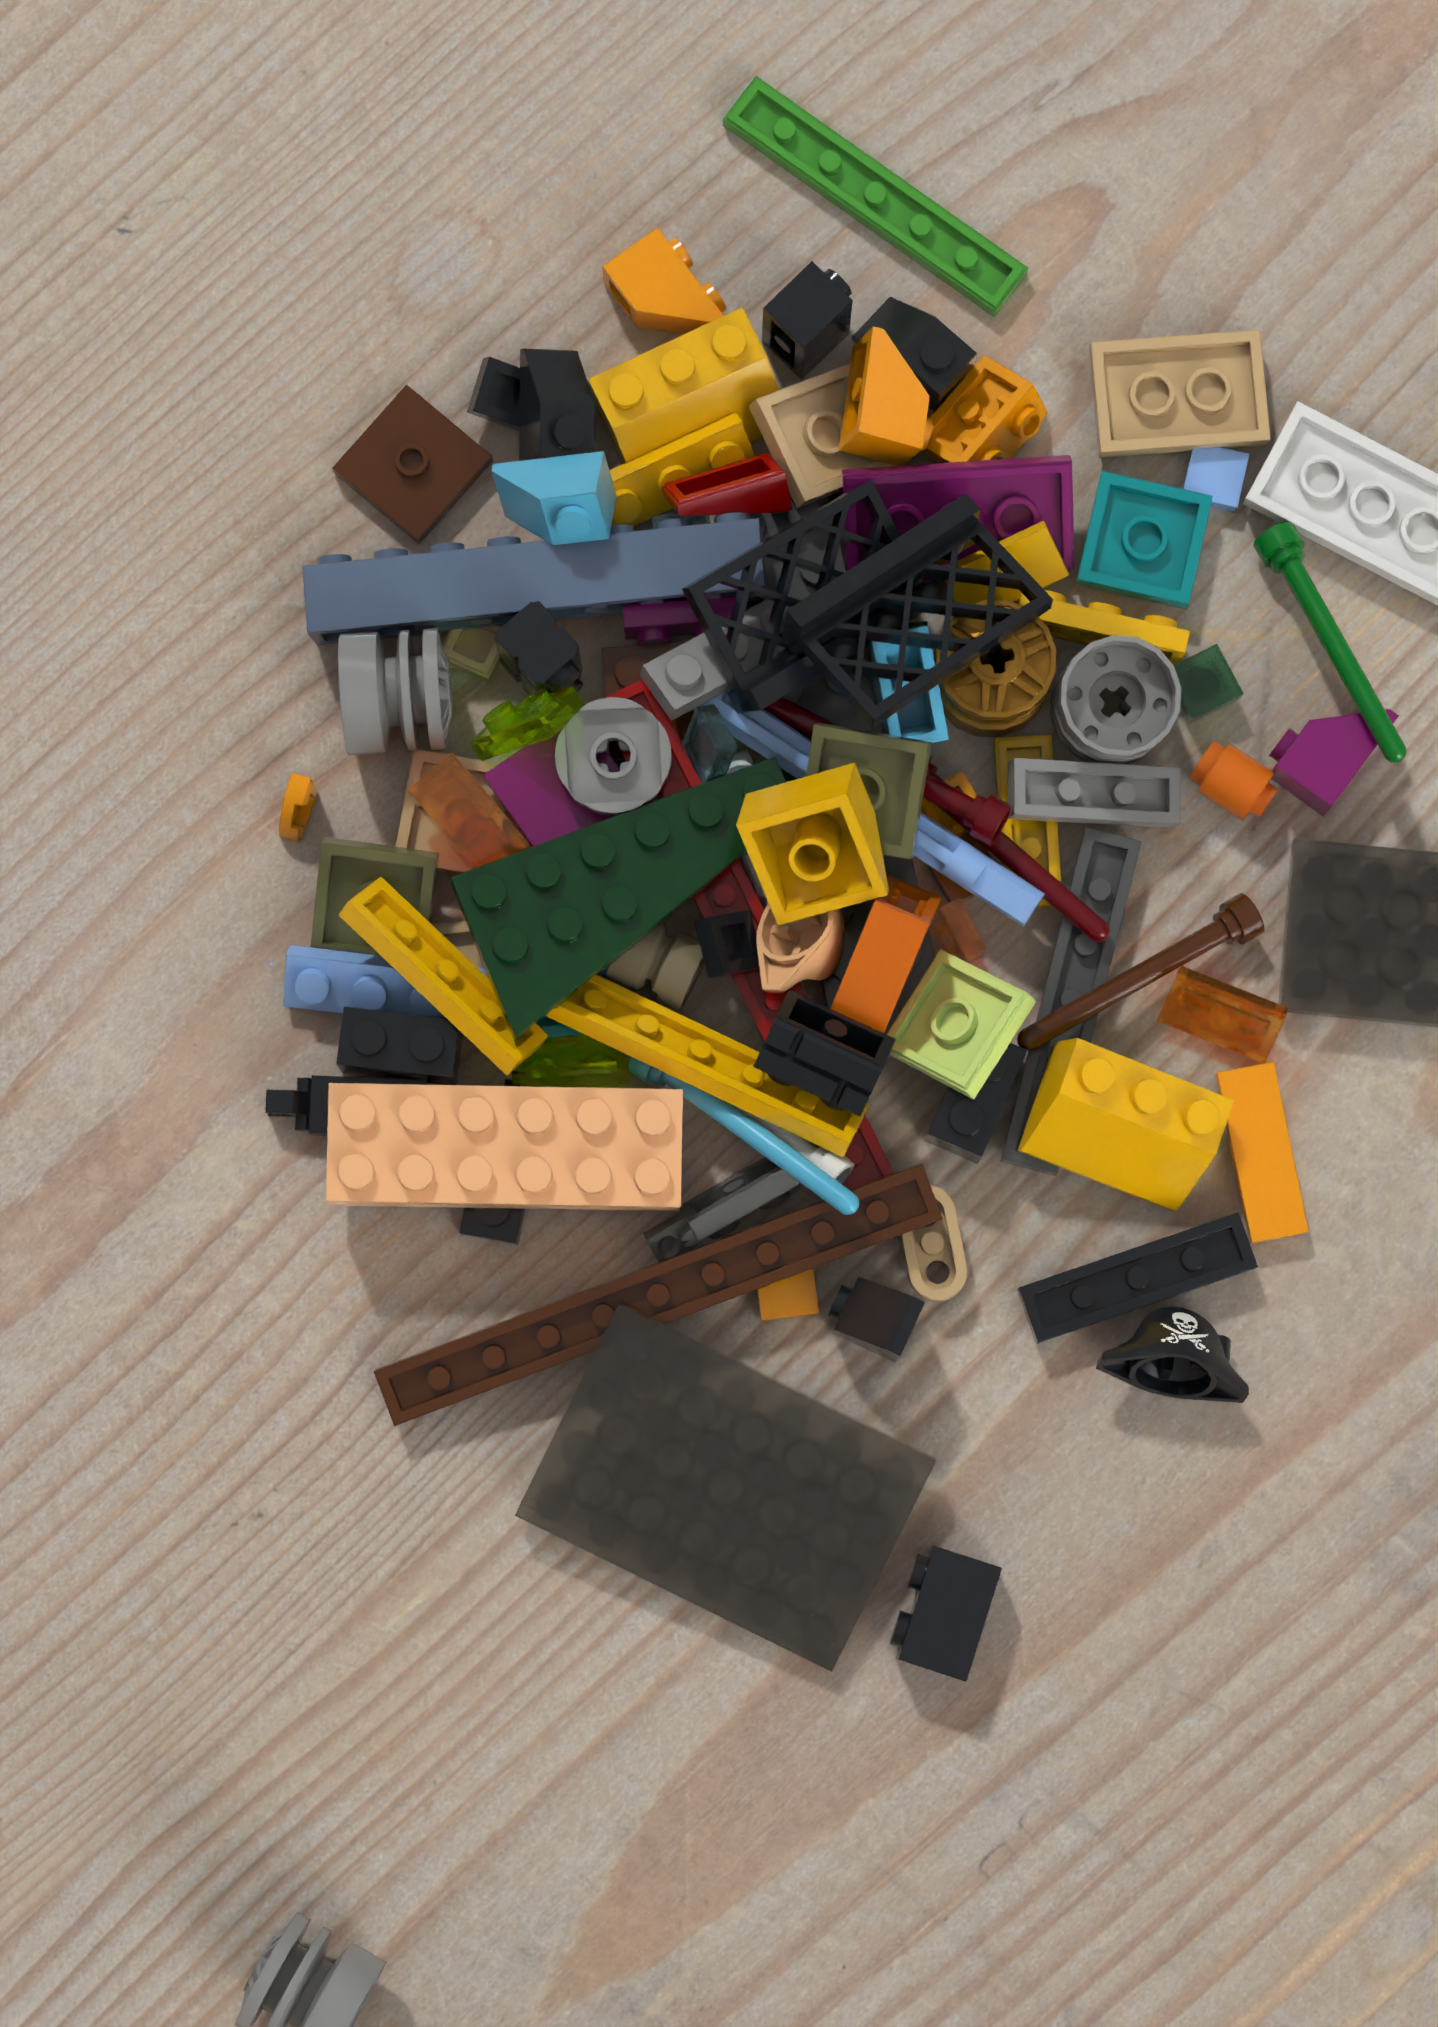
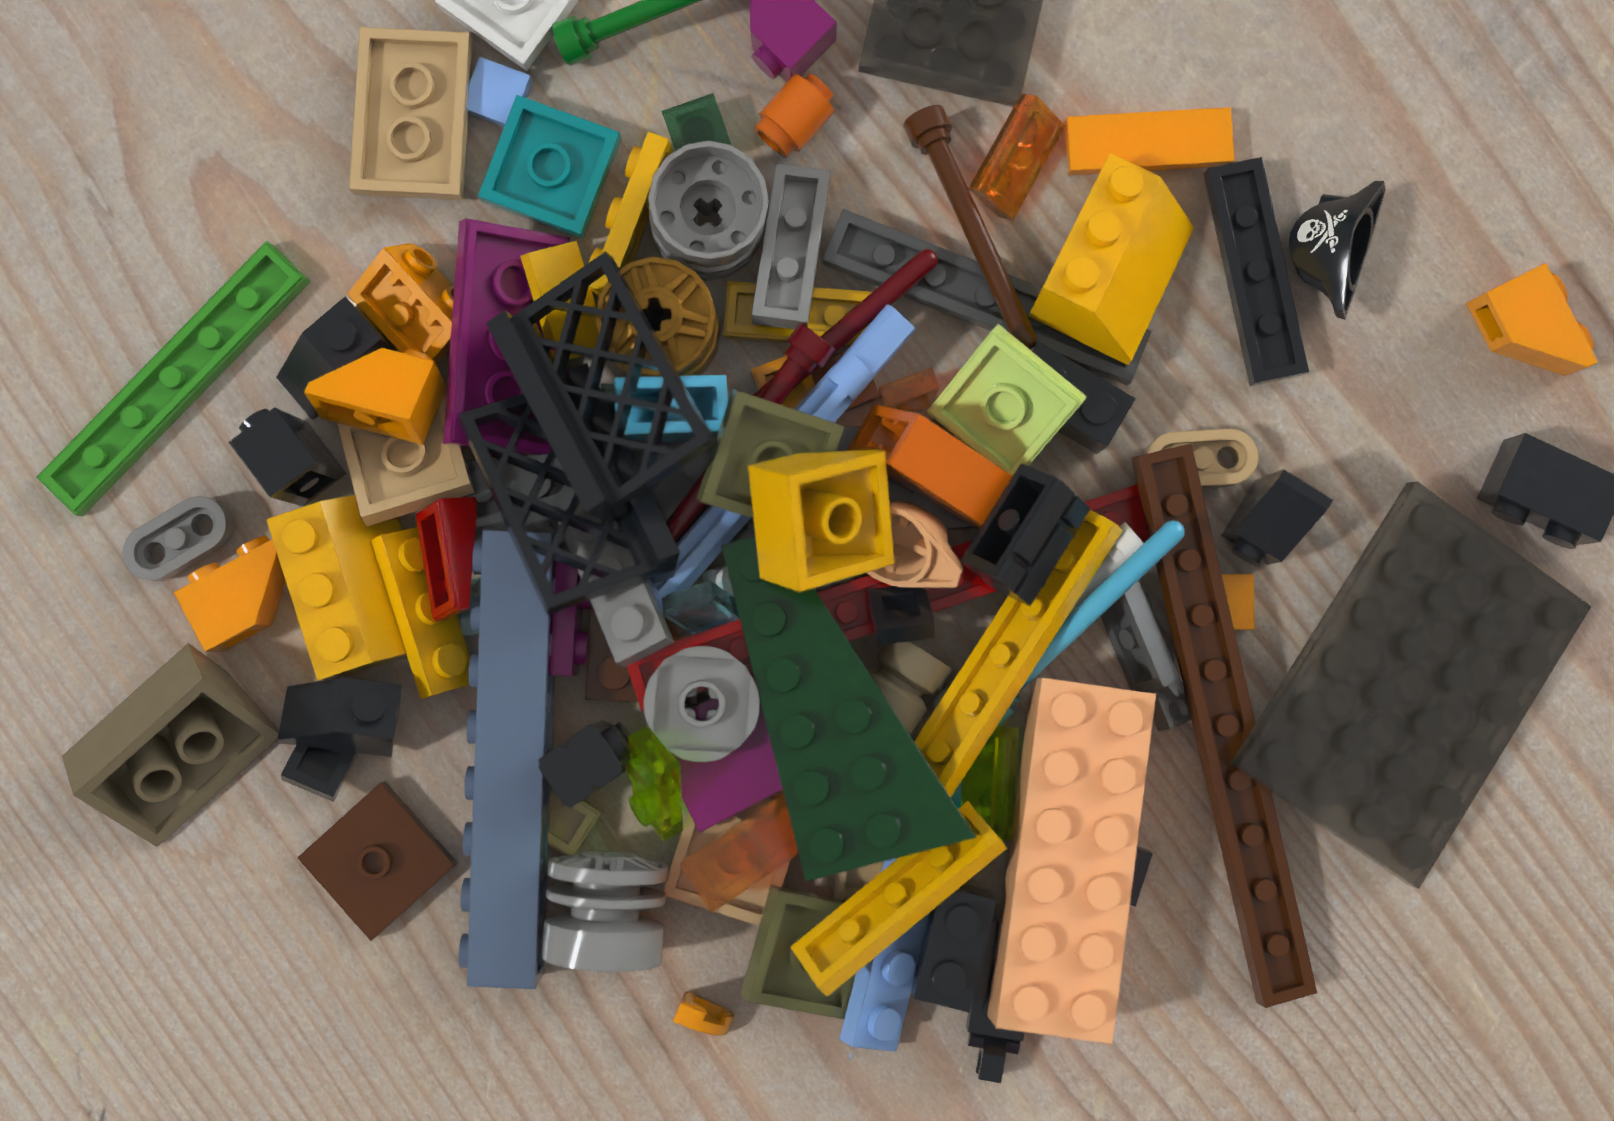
camera: 75 degrees left, 5 degrees up
(502, 245) = (169, 747): none -> dark tan slope
(559, 496) = (433, 723): medium azure slope -> none
(713, 225) = (180, 536): none -> light grey plate
(1122, 1570) = (1534, 323): none -> light orange slope

